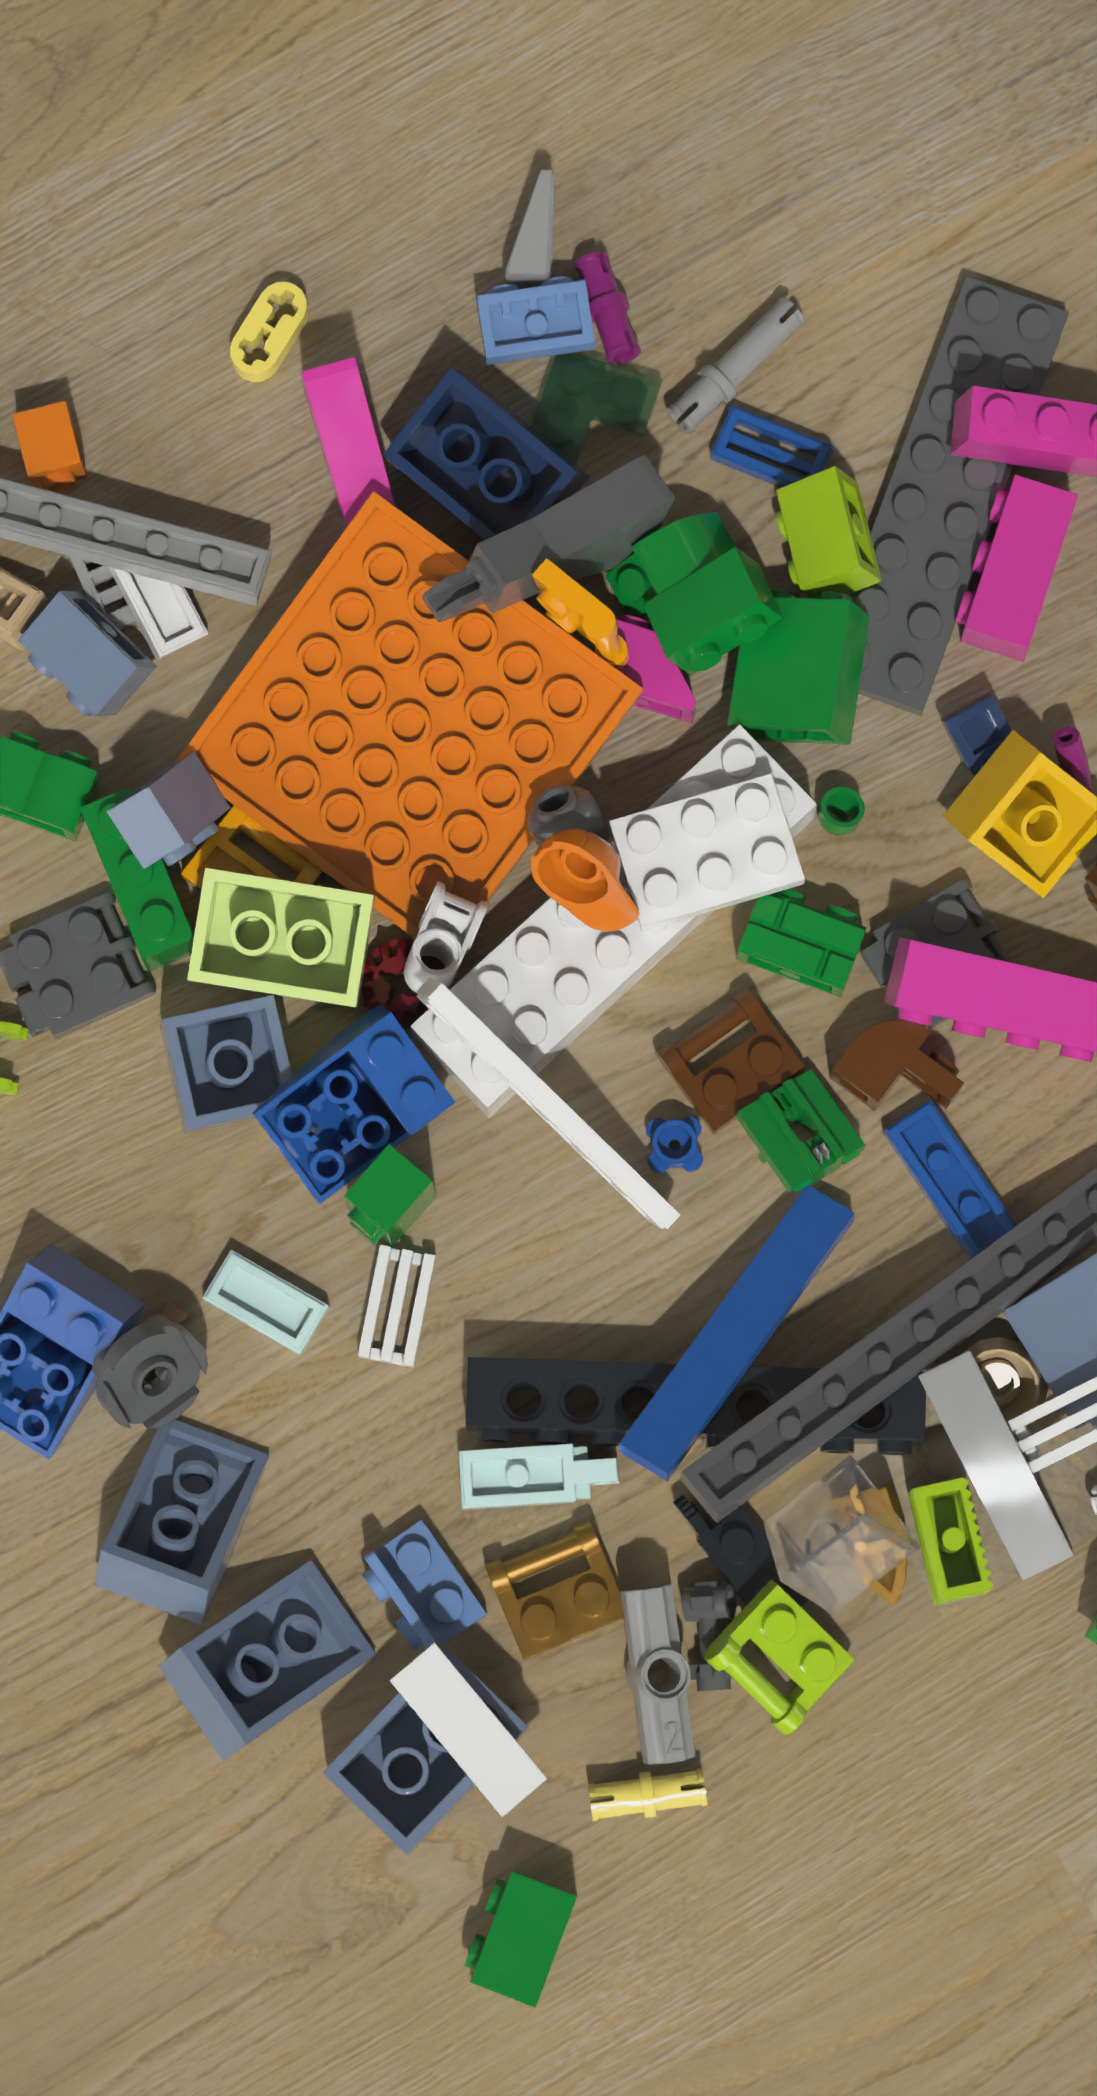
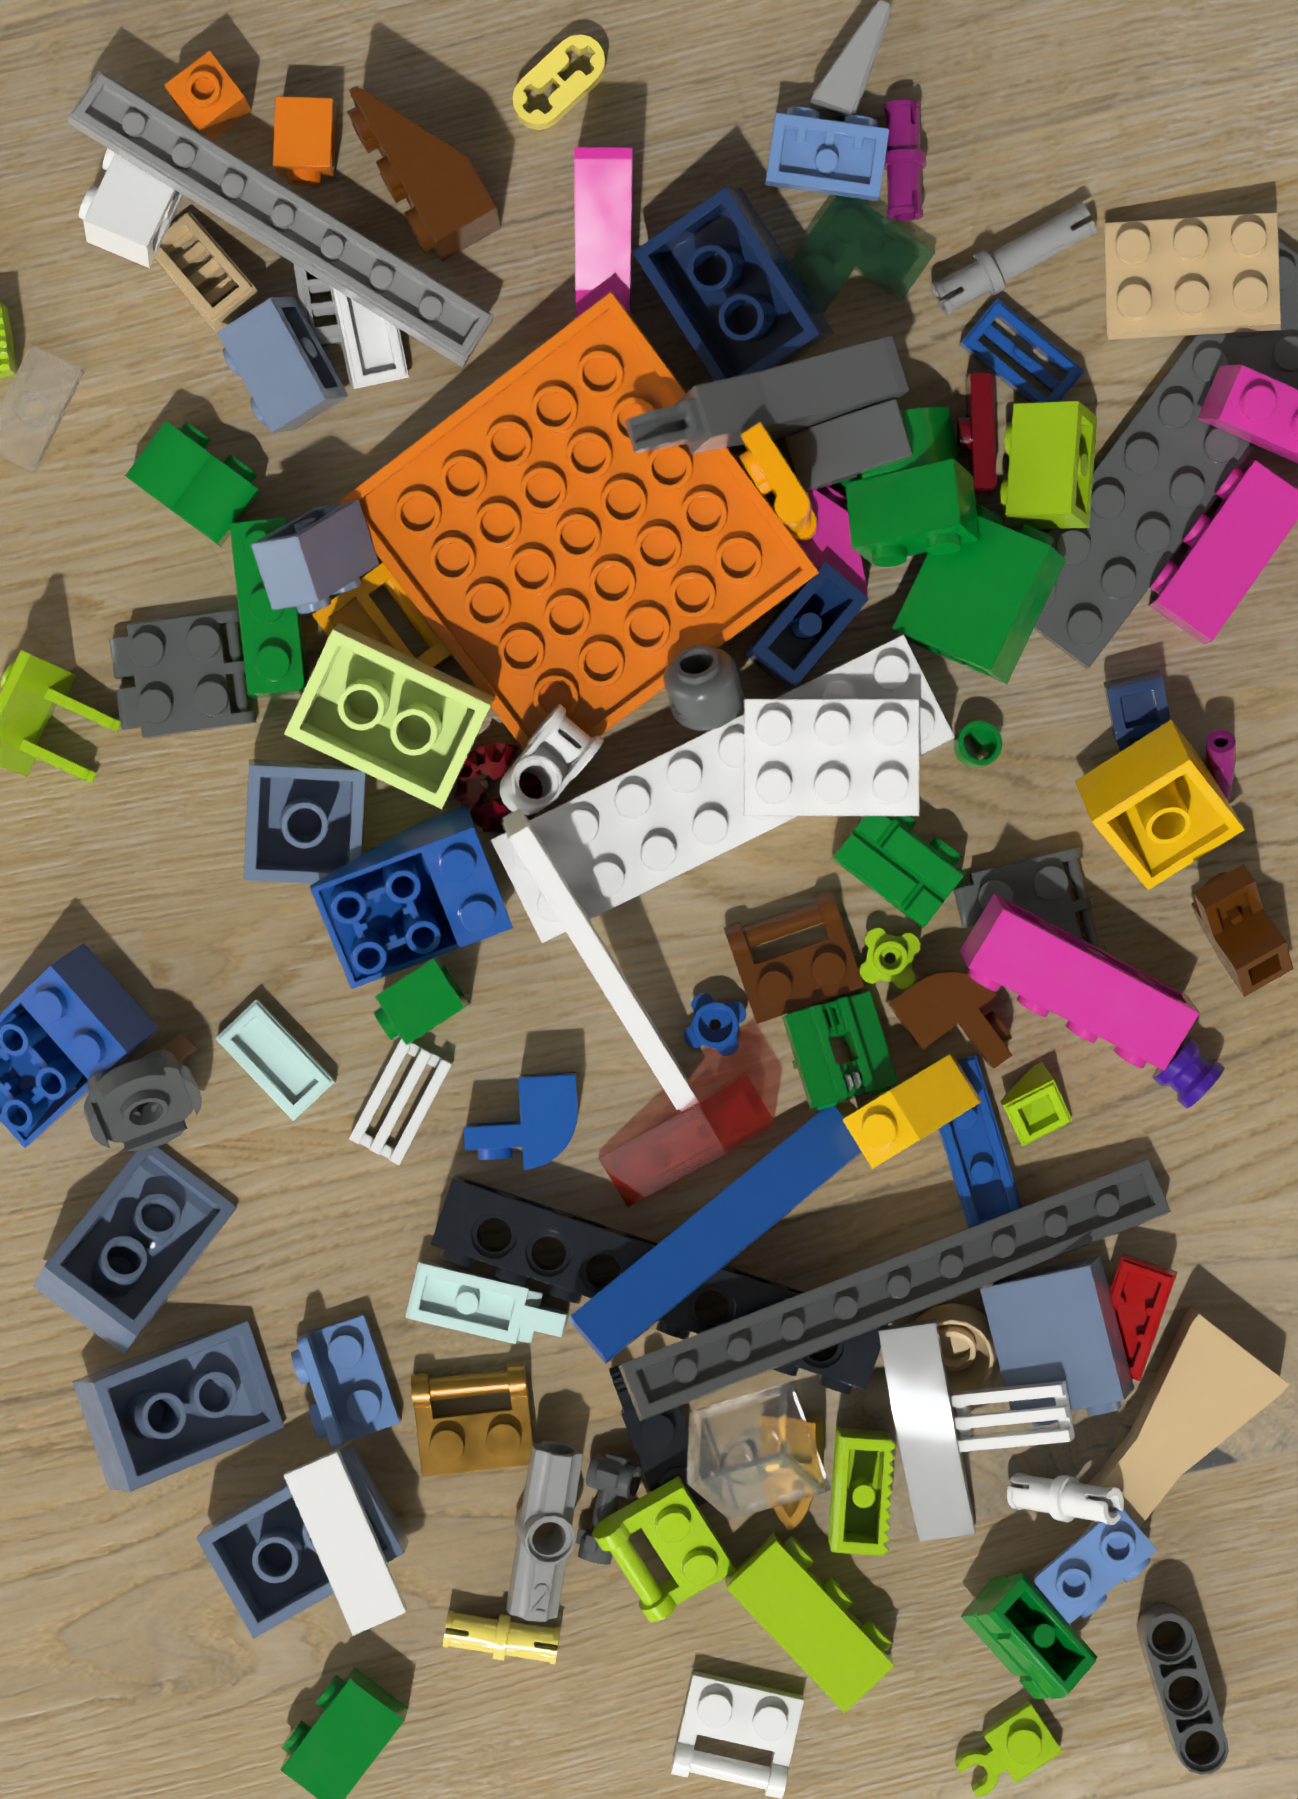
camera: 10 degrees right, 10 degrees up
(173, 441) = (438, 181): none -> reddish brown slope
(541, 1288) = (546, 1126): none -> blue brick
(583, 877) = (702, 750): orange piece -> none
(638, 564) = (848, 446): none -> dark grey slope
(646, 746) = (806, 627): none -> dark blue slope
(682, 1258) = (687, 1140): none -> clear red slope
(751, 526) = (977, 432): none -> dark red plate
(811, 1046) = (880, 944): none -> lime plate
(885, 1164) = (912, 1110): none -> yellow slope
(904, 331) = (1192, 276): none -> tan plate
(905, 1802) = (739, 1715): none -> white plate
(942, 1684) = (811, 1620): none -> lime brick
(1002, 1131) = (1035, 1105): none -> lime slope

